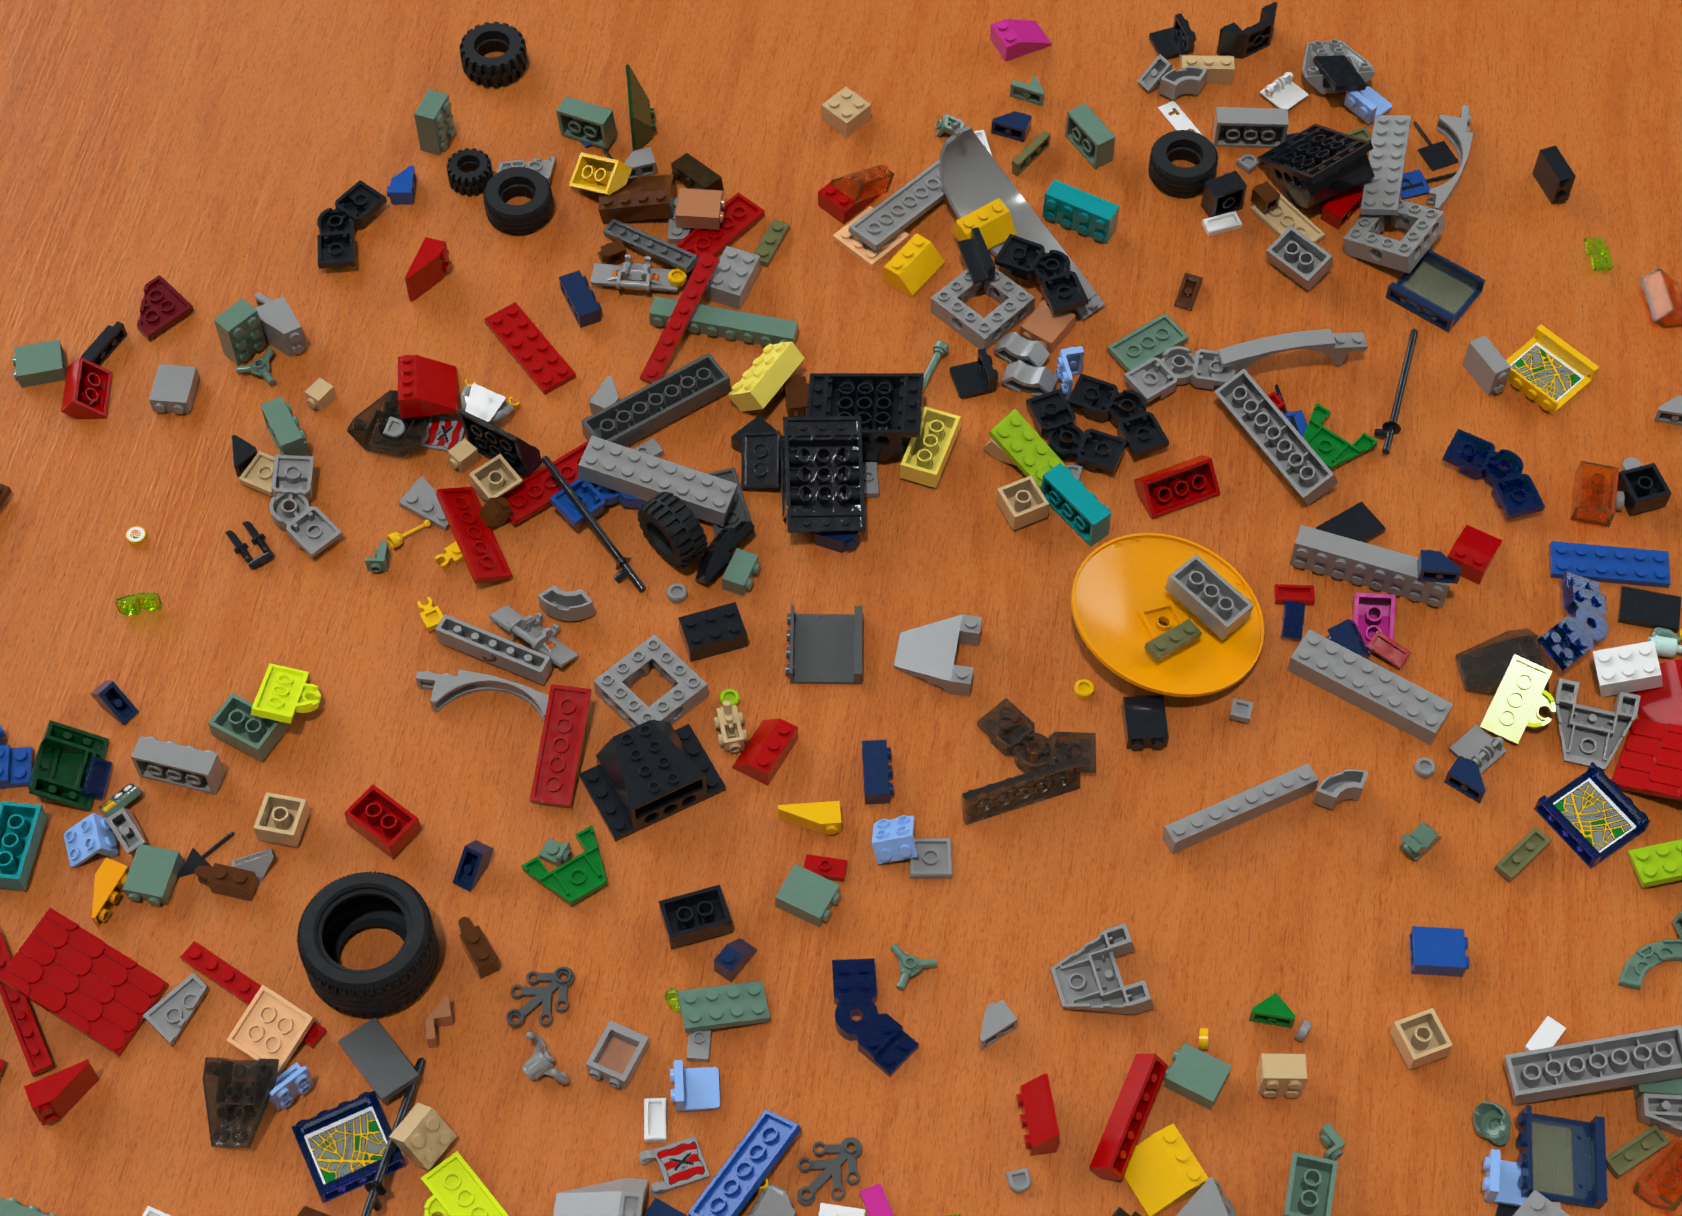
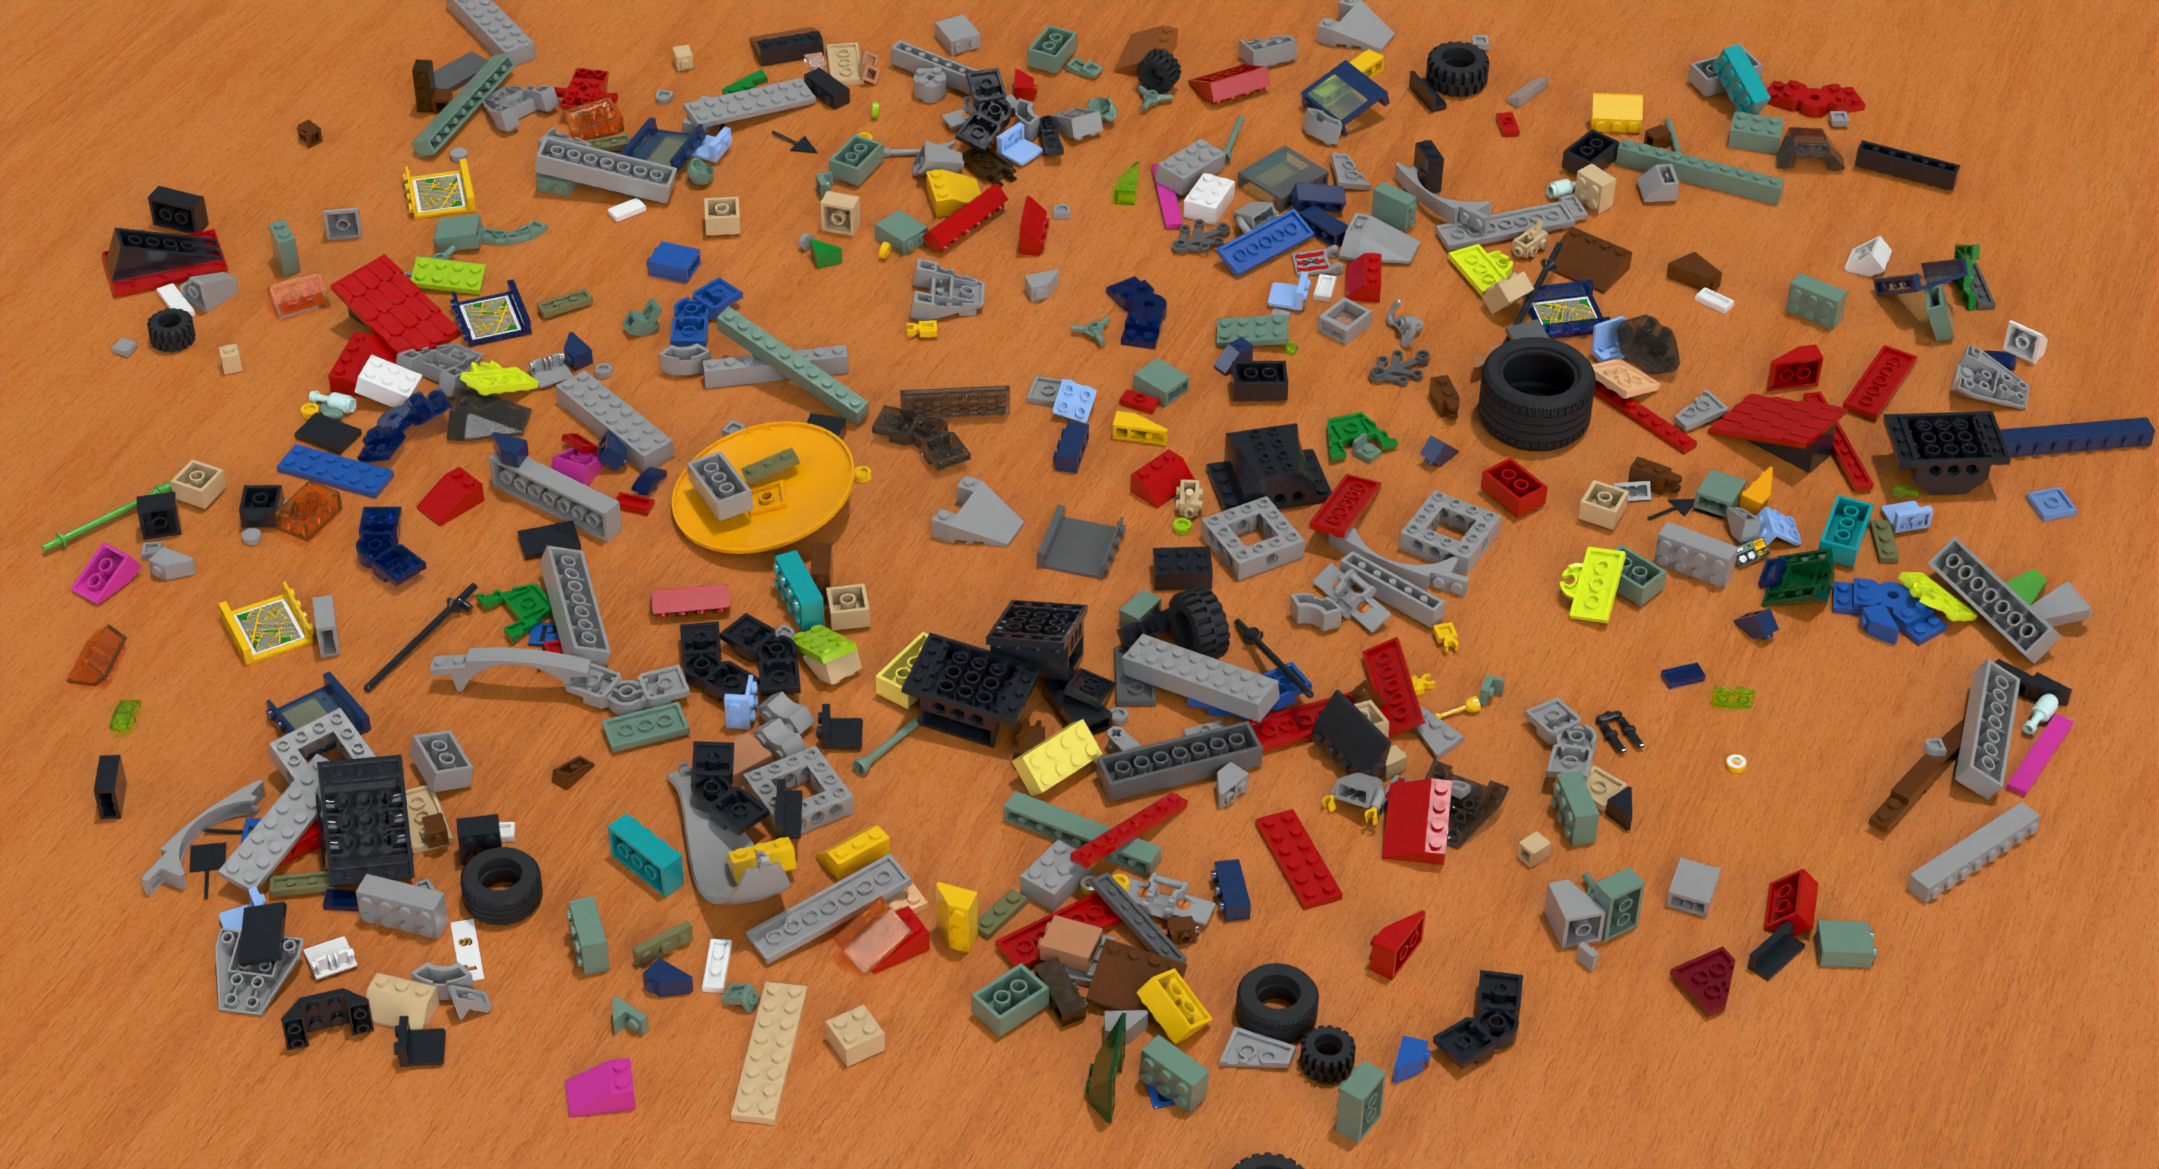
camera: 165 degrees left, 15 degrees down
(189, 626) = (1683, 675): none -> clear blue tile
(458, 776) = (1478, 523): none -> light grey brick
(609, 1140) = (1364, 278): none -> red slope
(714, 419) = (1120, 740): none -> light grey piece
(728, 456) = (1119, 716): none -> light grey tile
(736, 158) = (1010, 999): none -> sand green brick
(800, 202) = (957, 916): none -> yellow slope
(908, 96) = (769, 1053): none -> tan plate
(1063, 531) = (822, 567): none -> reddish brown brick
(1103, 918) = (924, 329): none -> yellow plate
(1216, 780) = (792, 365): none -> sand green brick
(1362, 845) = (692, 316): none -> blue plate

